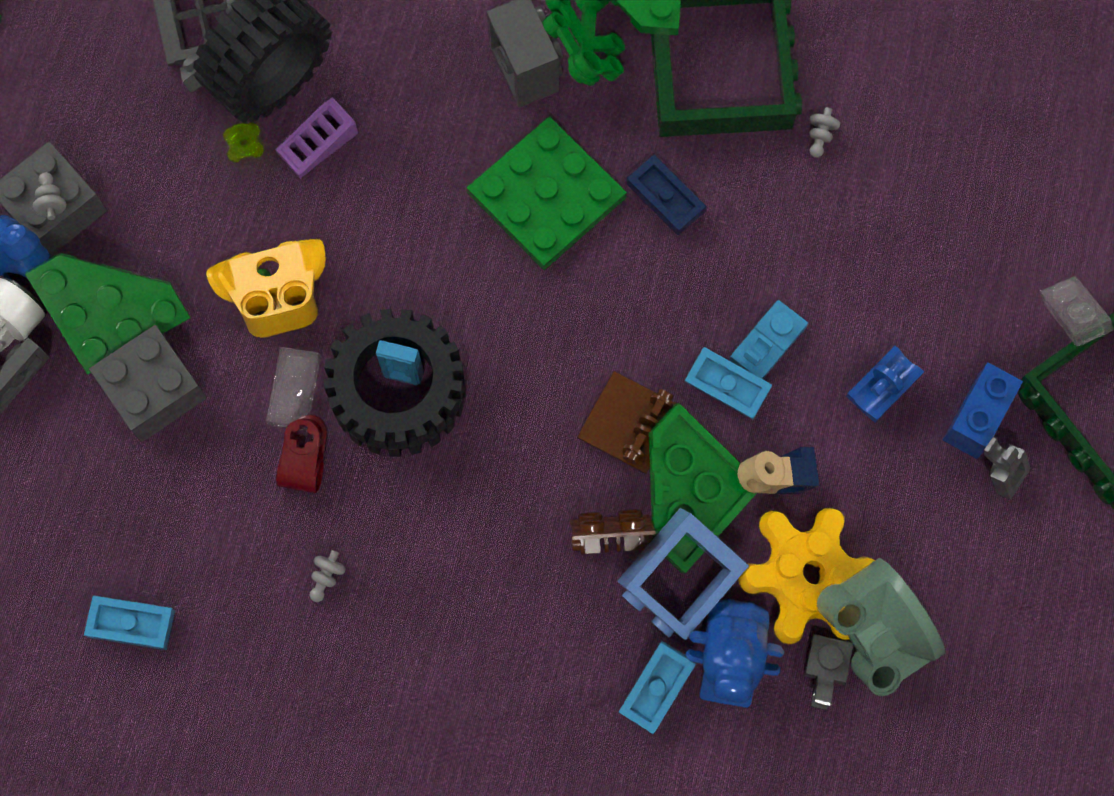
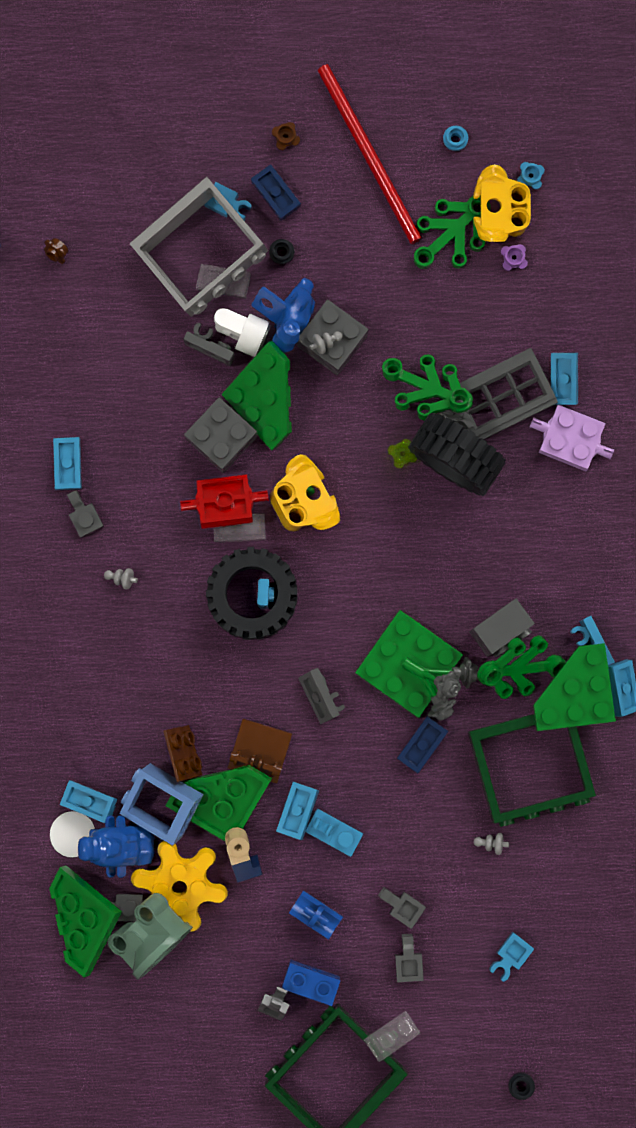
camera: 75 degrees right, 10 degrees up
(158, 80) = (429, 388): none -> green plant
(220, 613) = (85, 517): none -> dark grey plate
(248, 396) = (224, 501): none -> red plate
(302, 461) = (192, 545): dark red piece -> none
(308, 129) = (425, 520): medium lavender slope -> none
(567, 319) = (319, 697): none -> dark grey plate
(587, 124) = (447, 684): none -> dark grey plant
(701, 729) = (68, 830): none -> white sticker
(836, 730) = (83, 919): none -> green plate
(893, 263) = (405, 907): none -> dark grey plate
(974, 271) = (409, 964): none -> dark grey plate
(981, 132) = (513, 952): none -> dark azure plate

